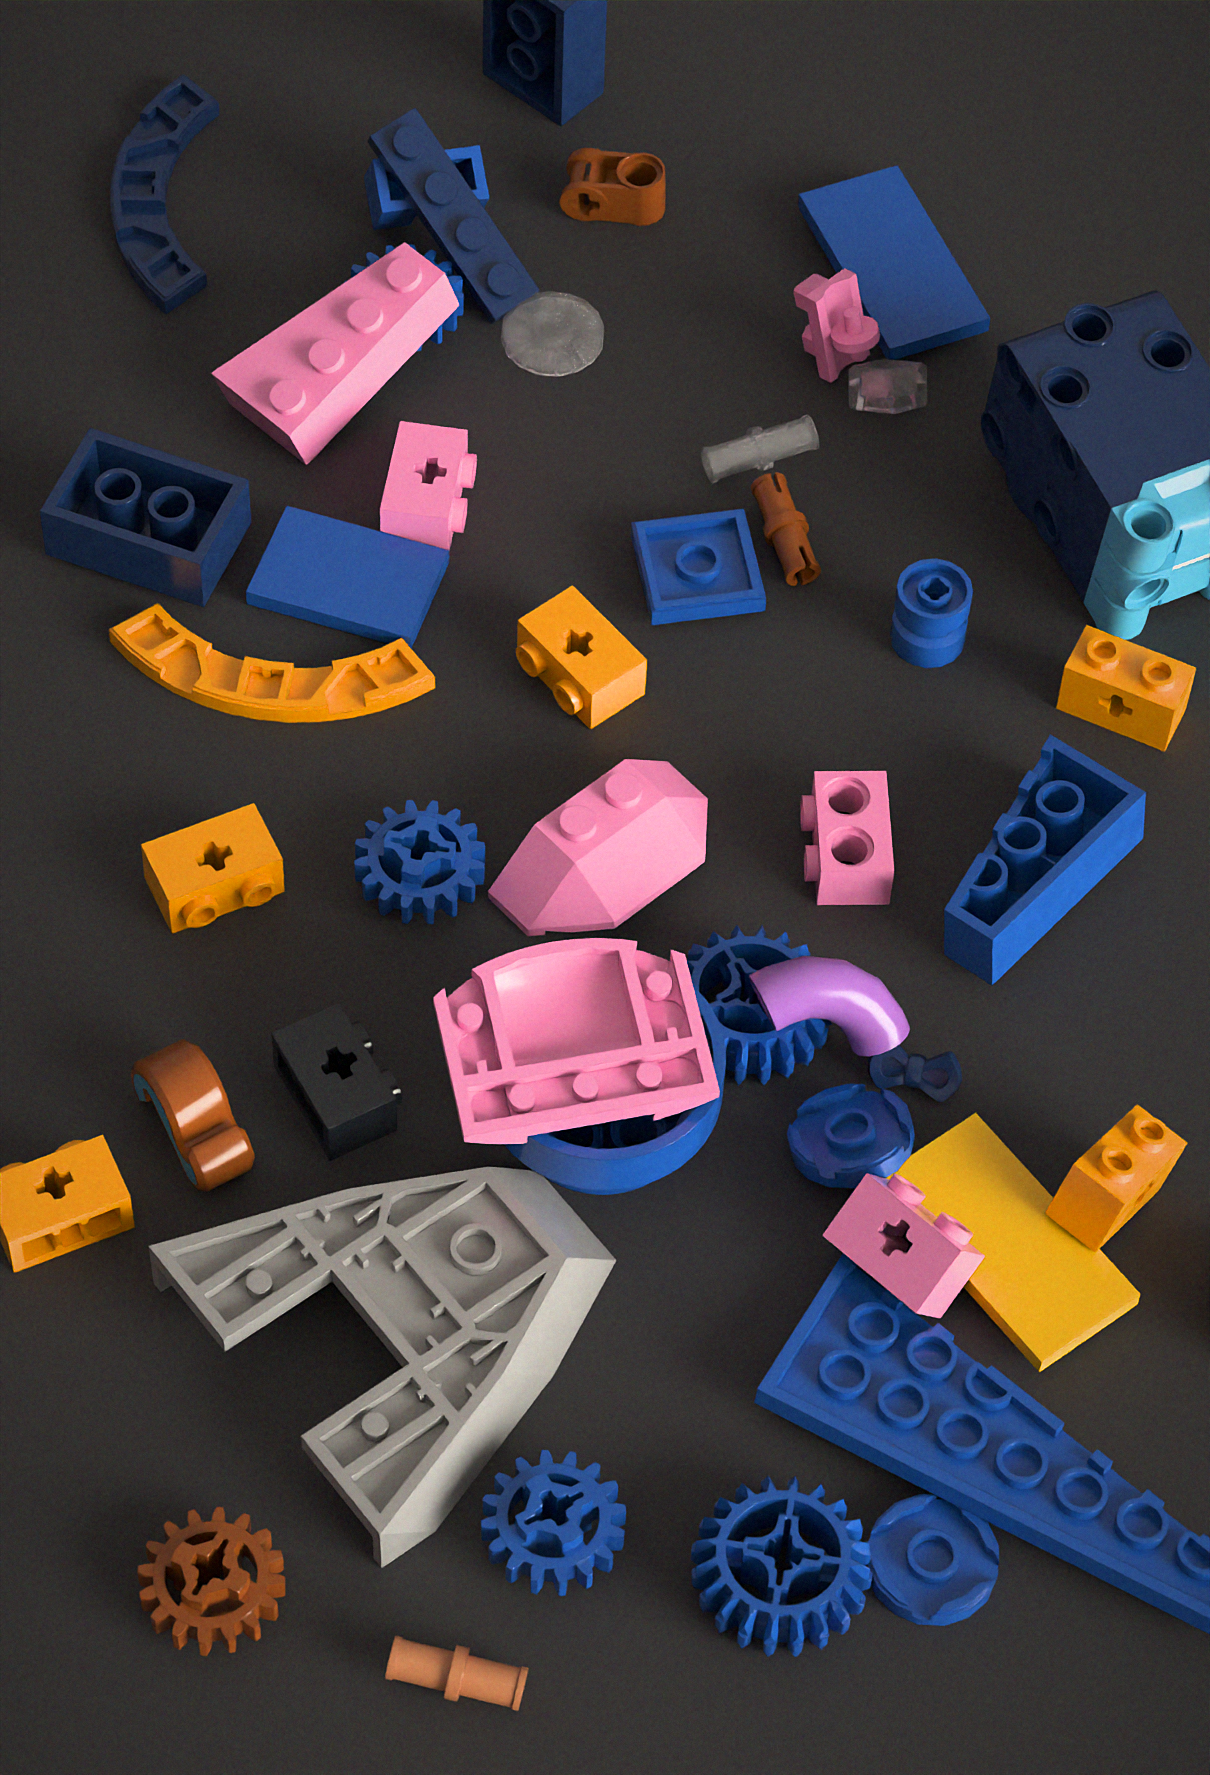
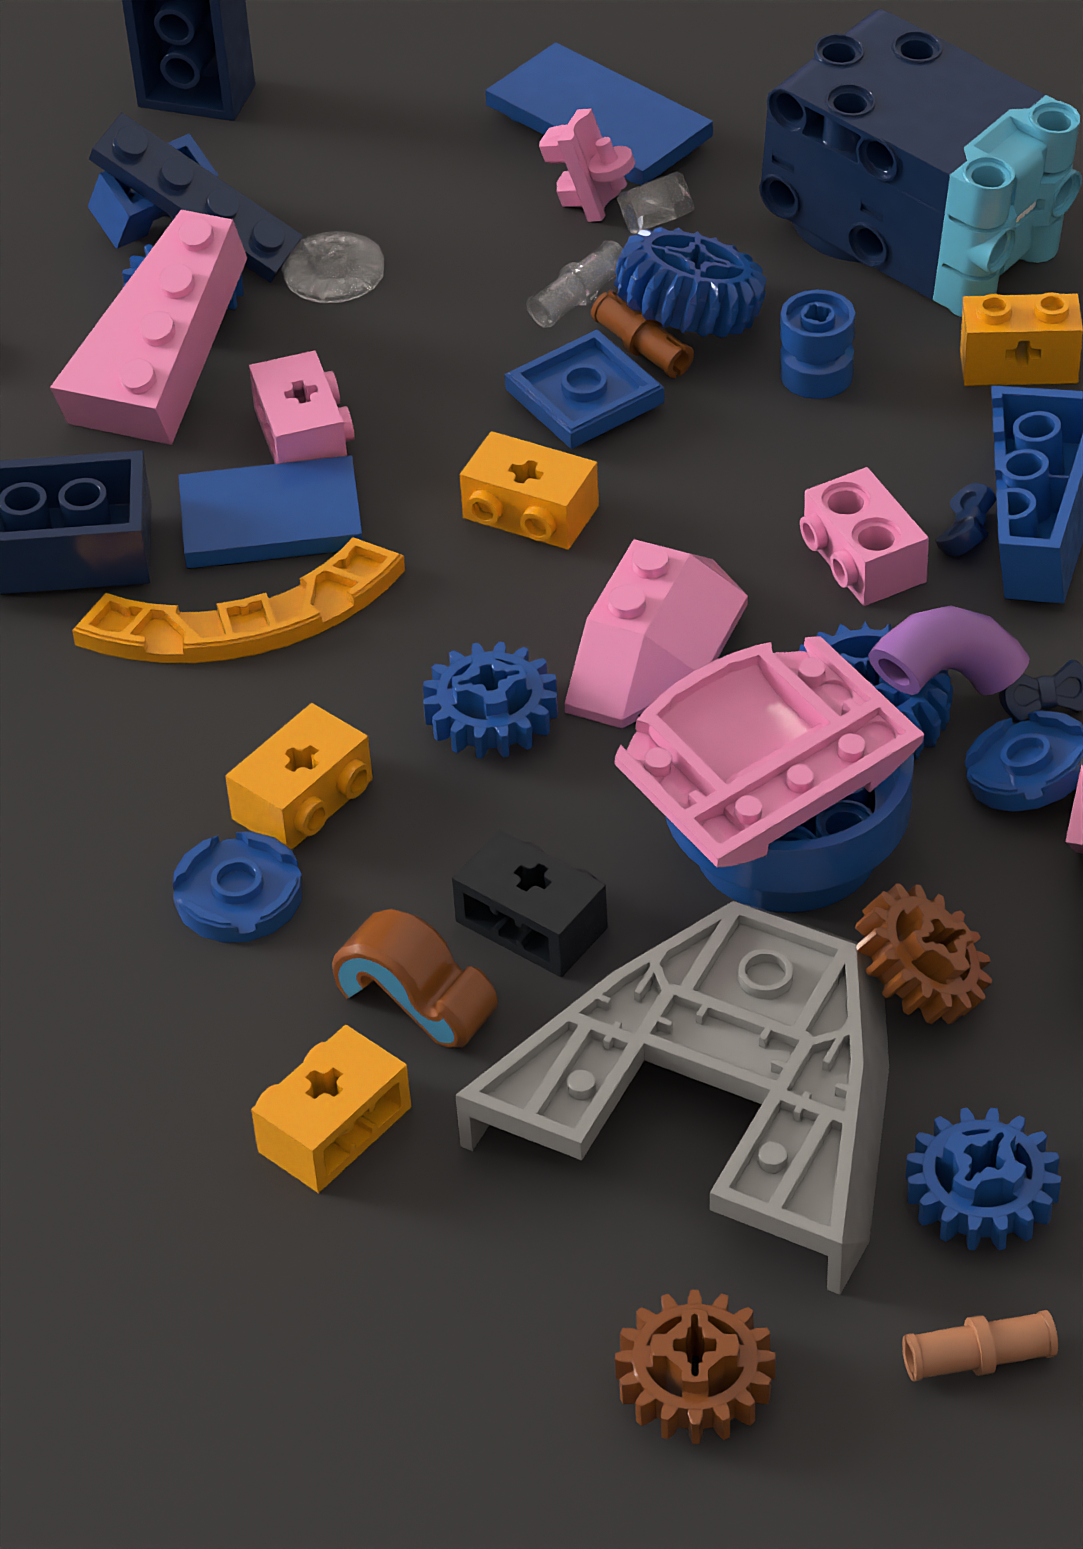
camera: 20 degrees left, 10 degrees down
(108, 950) = (237, 887): none -> blue tile
(619, 187) = (323, 139): dark orange piece -> none
(629, 1288) = (923, 954): none -> dark orange gear
(852, 496) = (690, 282): none -> blue gear
(948, 871) = (970, 509): none -> dark blue piece

